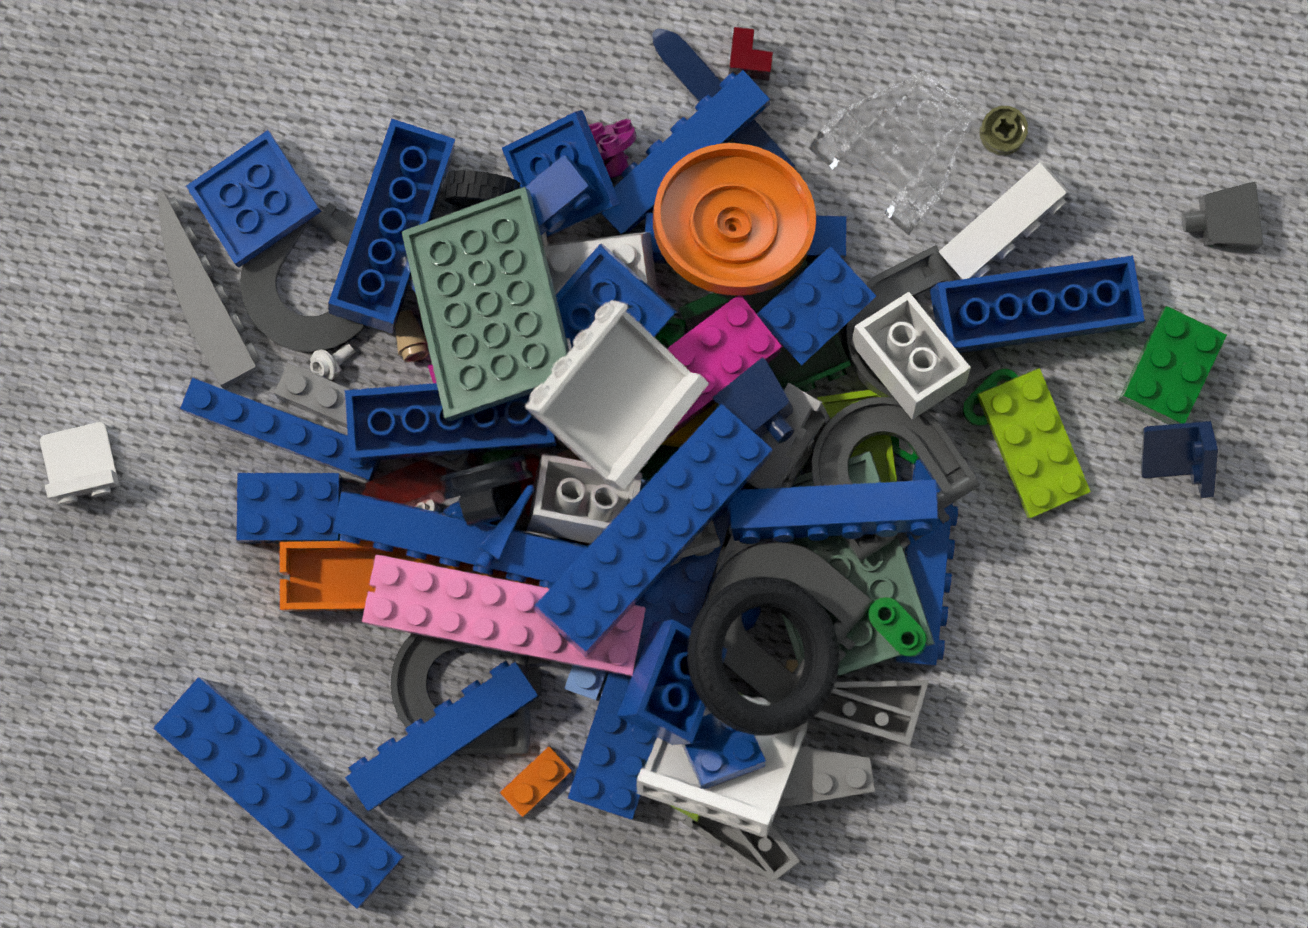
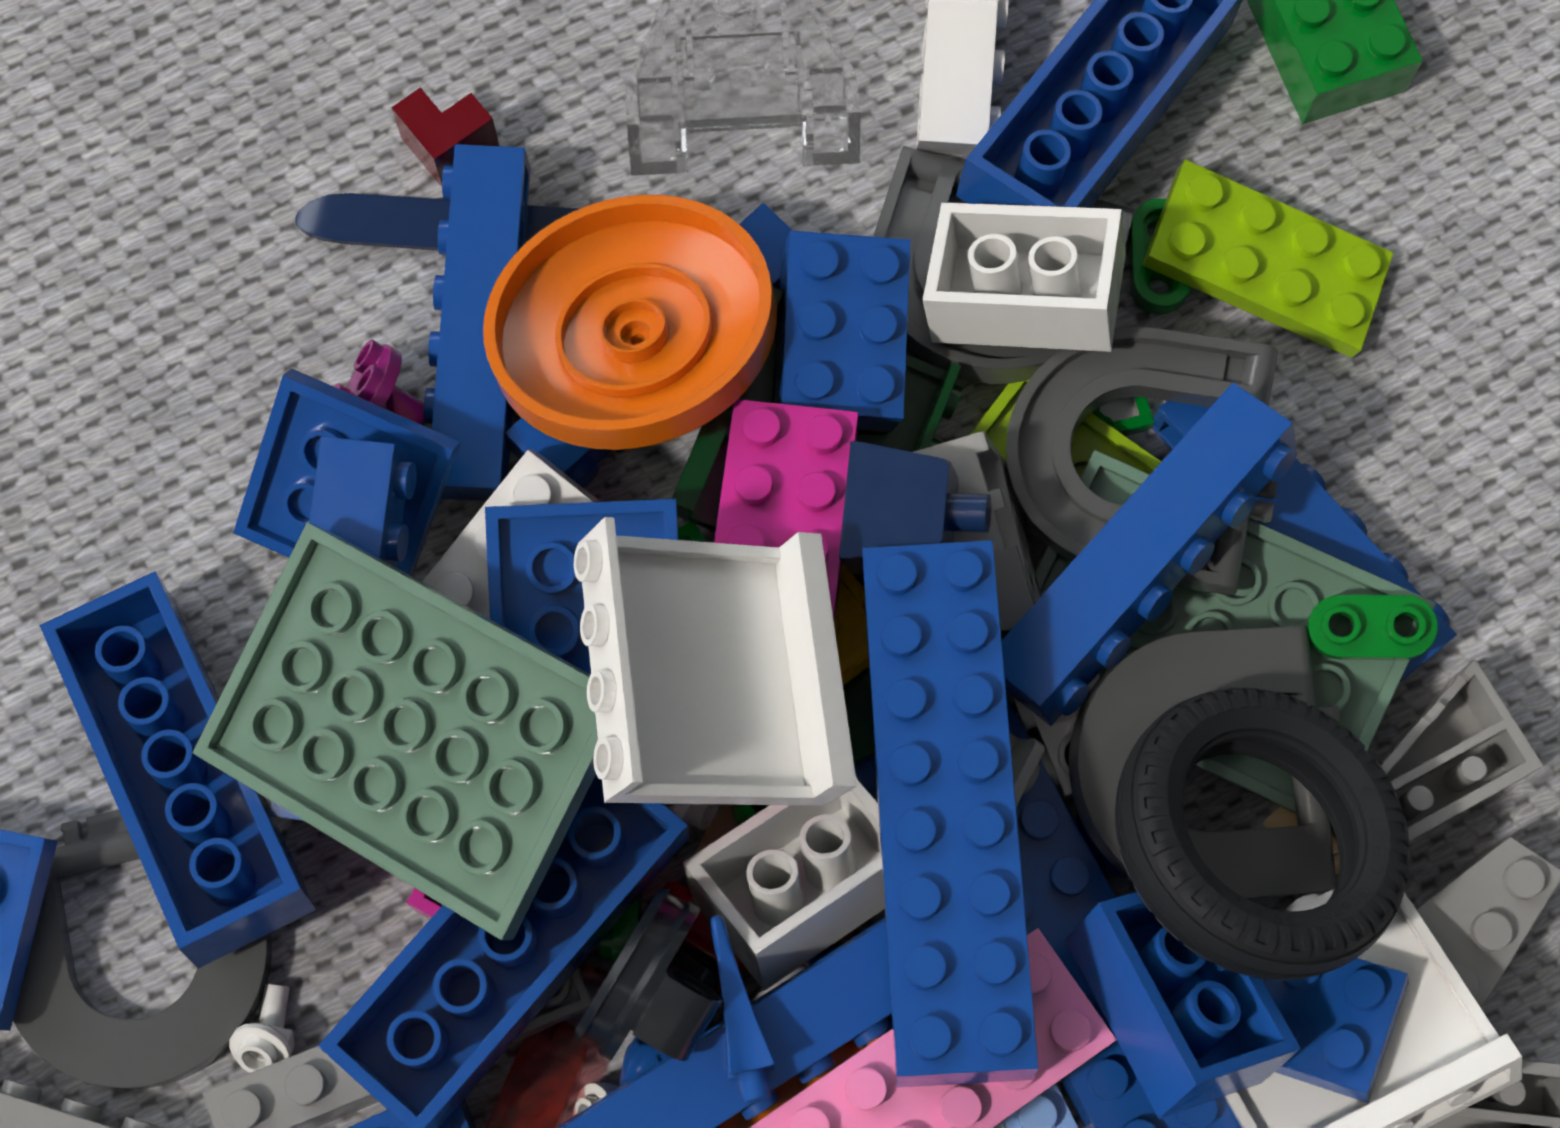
camera: 45 degrees left, 10 degrees down
(410, 338) = (348, 894): tan cone -> none
(473, 187) = (234, 604): black tyre -> none
(1181, 451) = (1460, 82): dark blue bracket -> none

